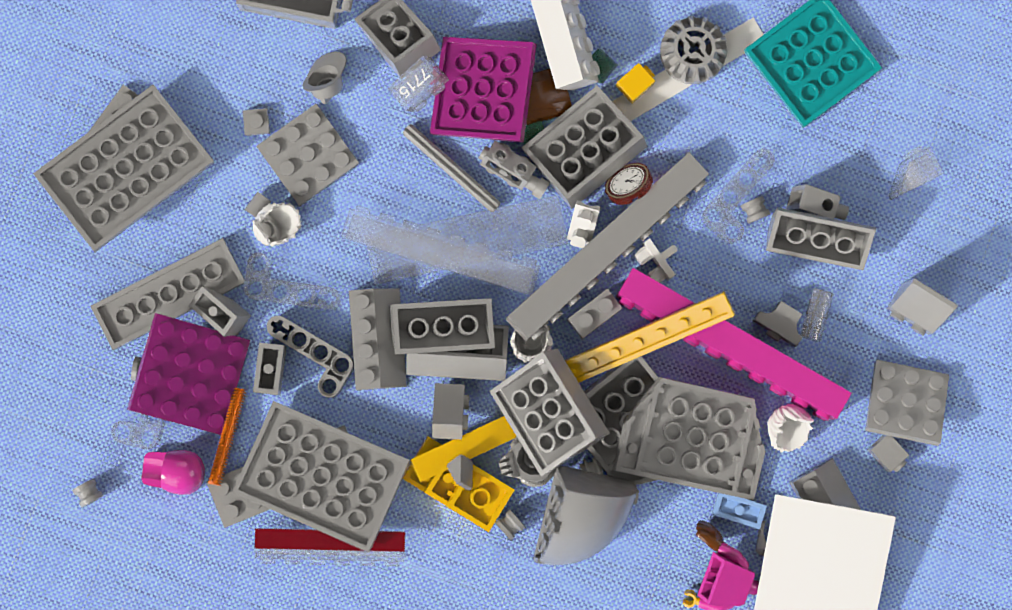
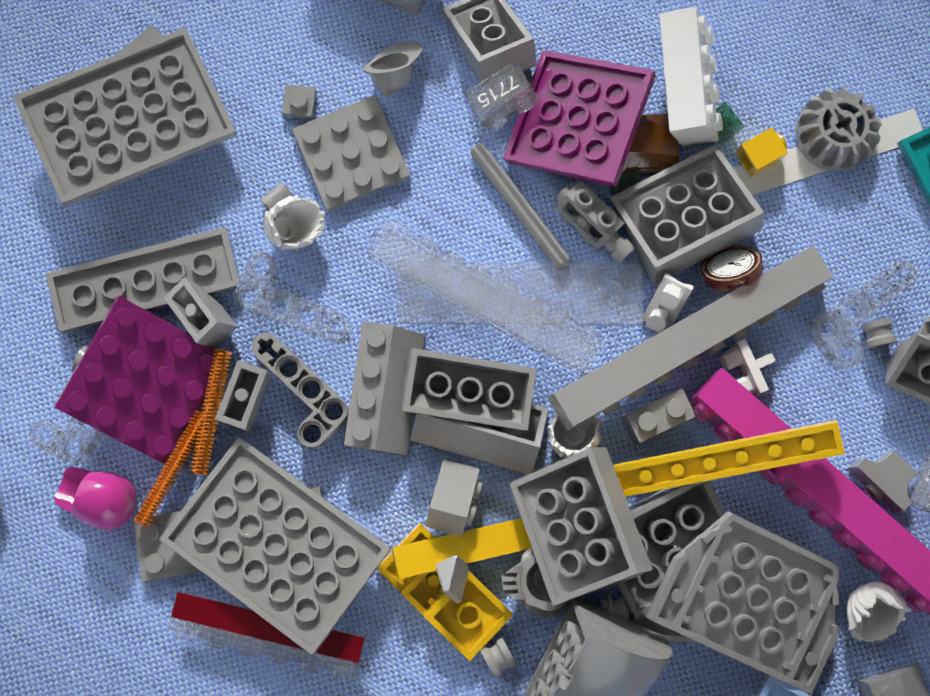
camera: 10 degrees right, 5 degrees down
(248, 380) = (212, 406): none -> orange axle

